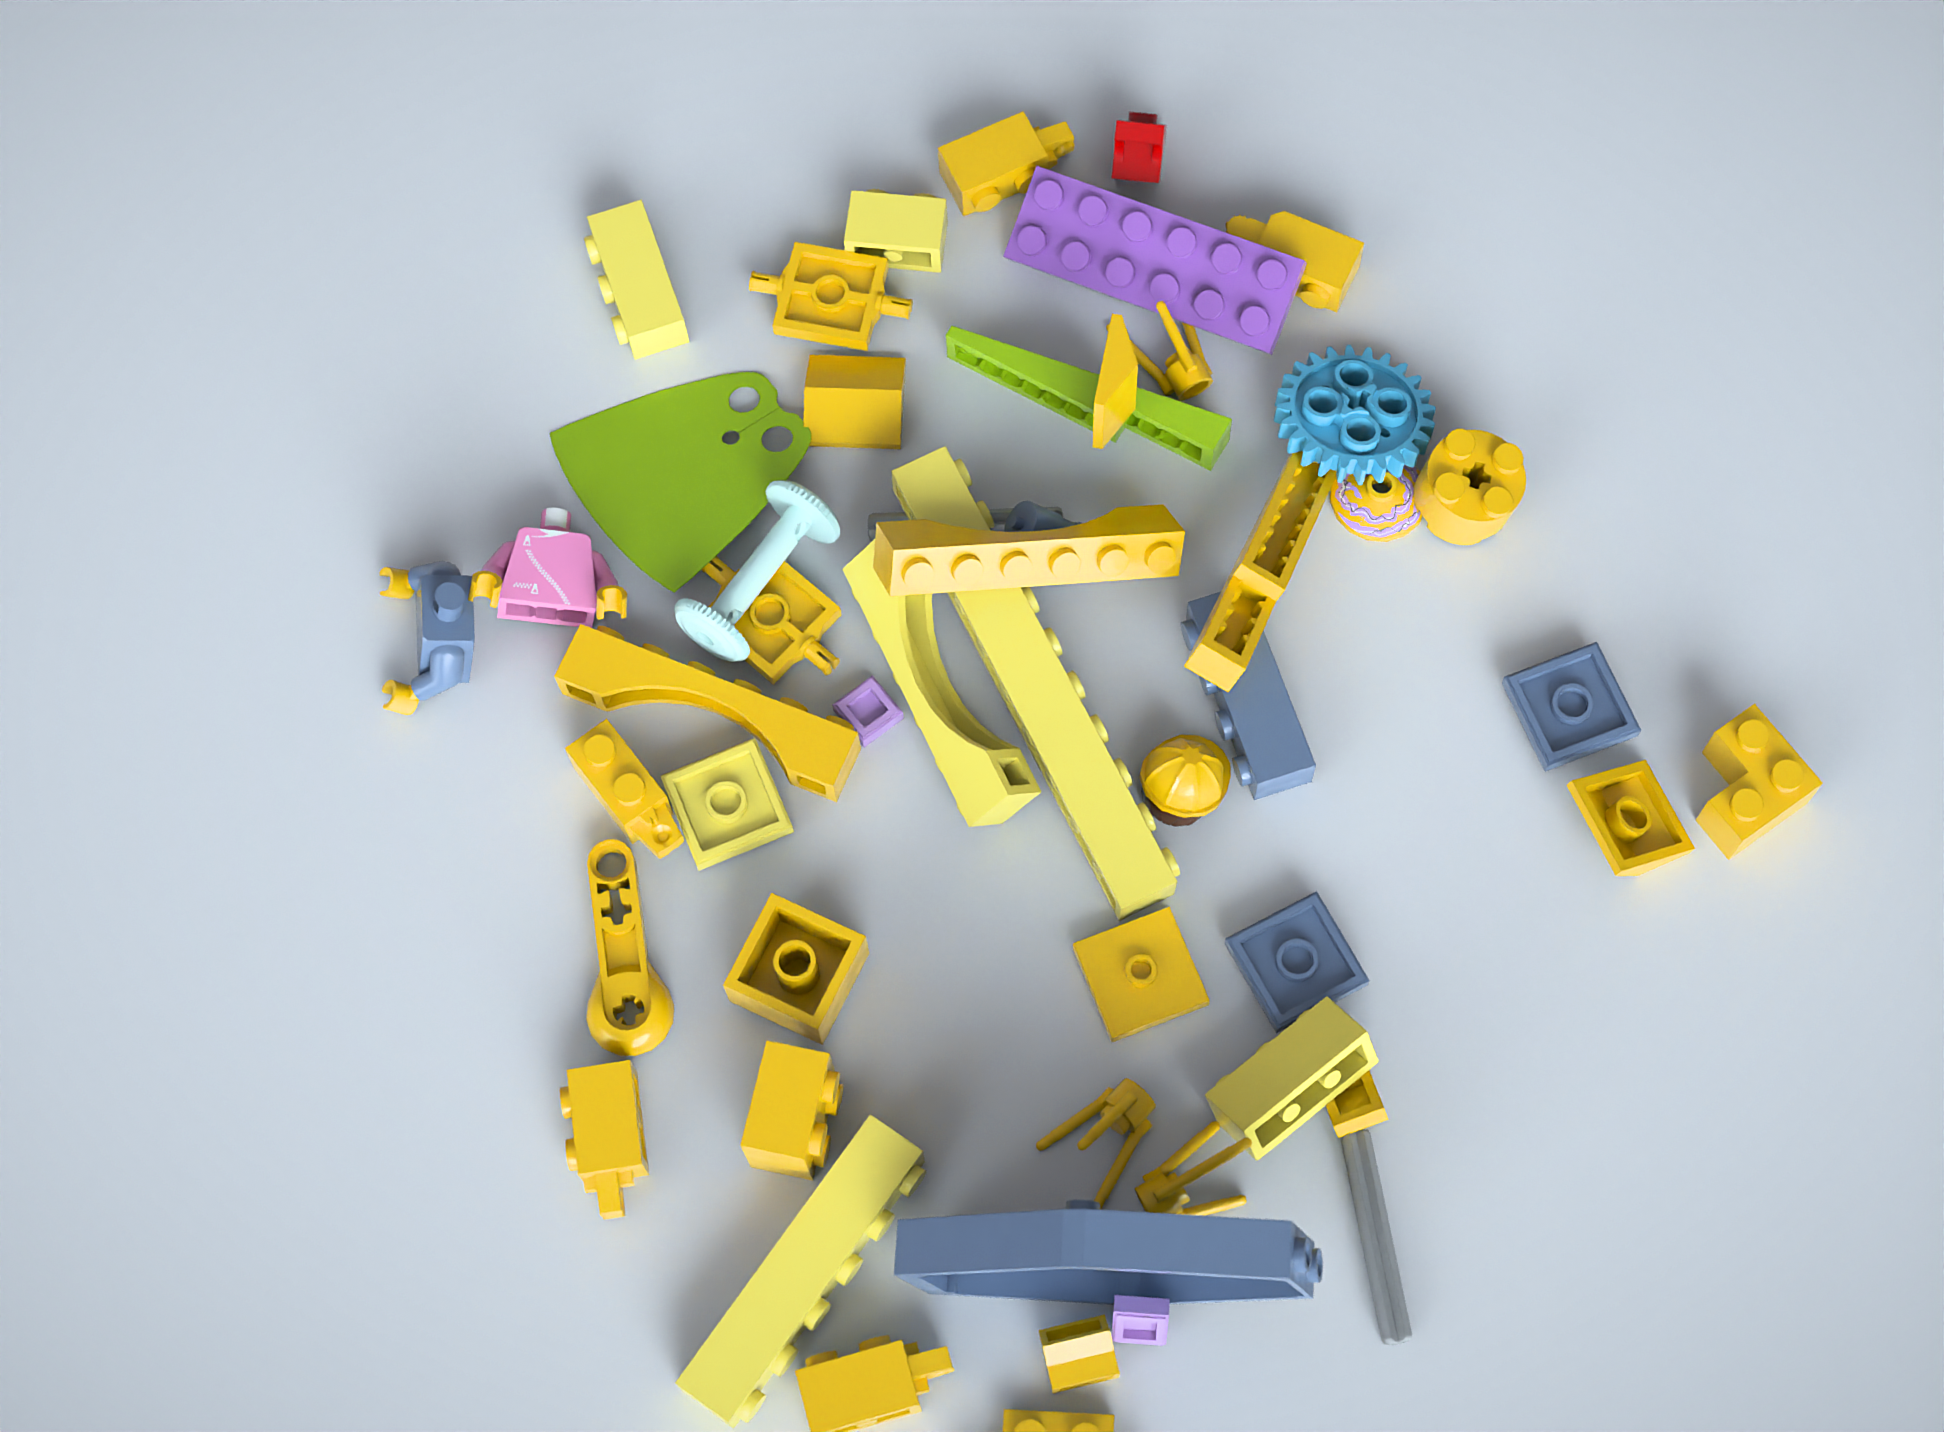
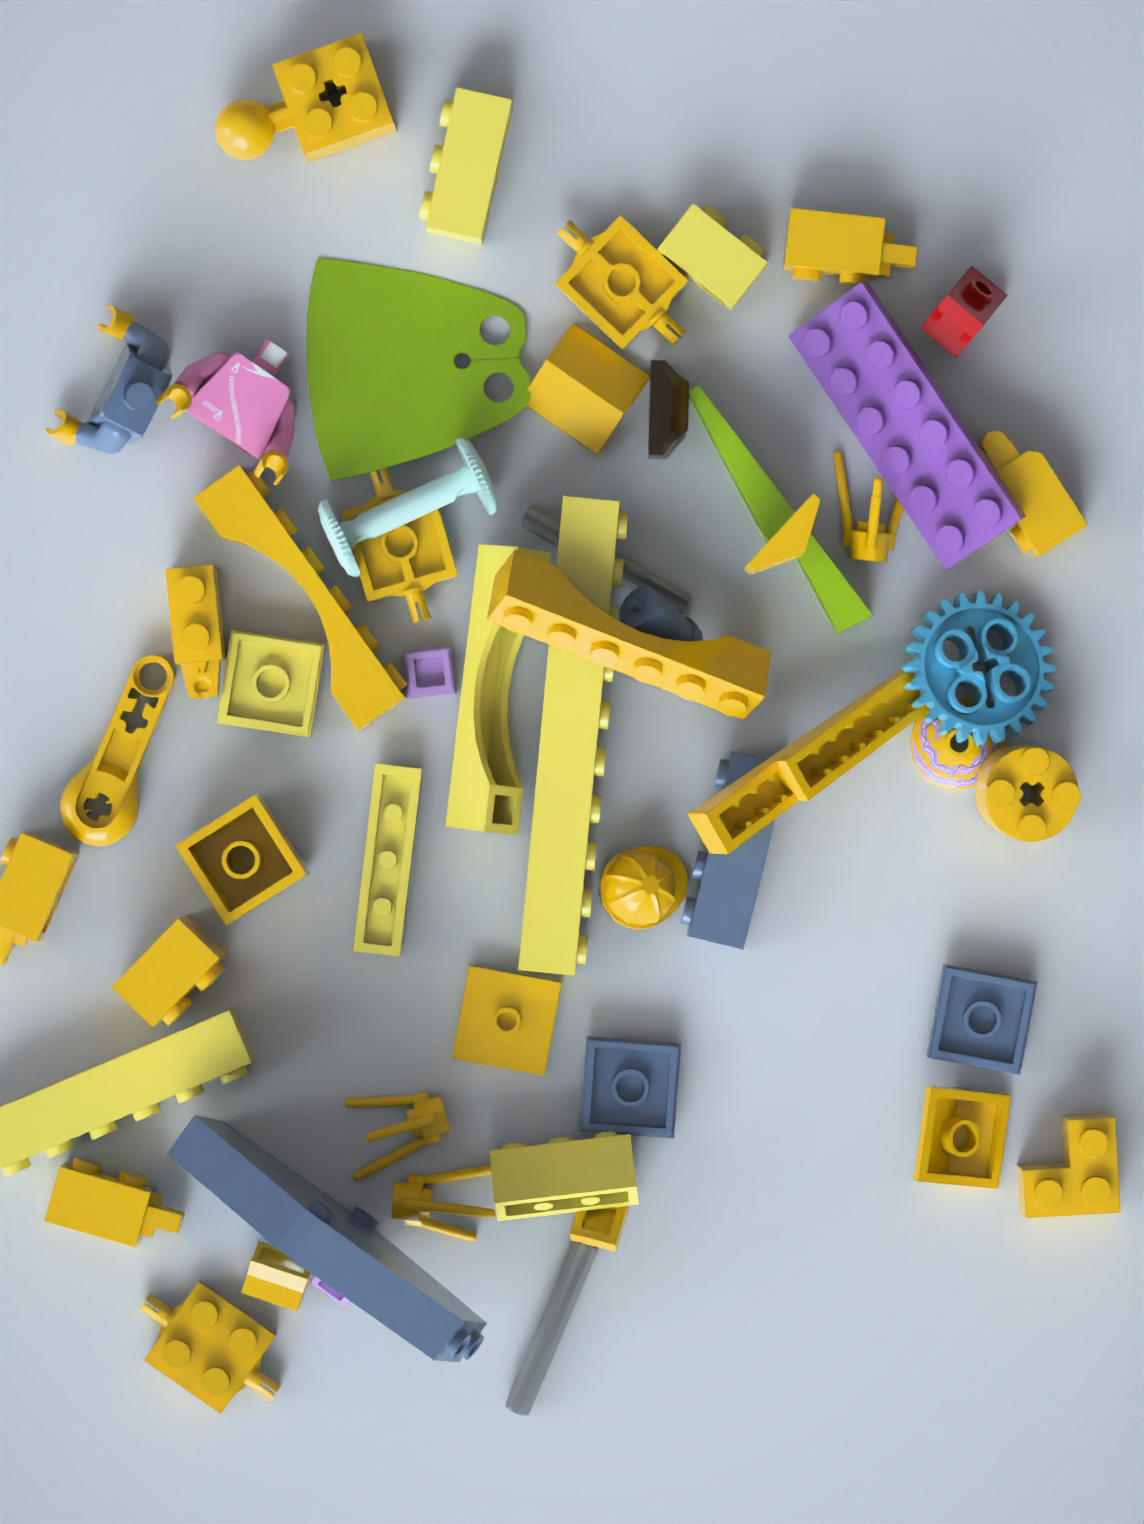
camera: 30 degrees right, 20 degrees up
(473, 292) = (248, 127): none -> yellow brick
(935, 895) = (387, 859): none -> light yellow plate
(937, 365) = (666, 410): none -> dark brown slope

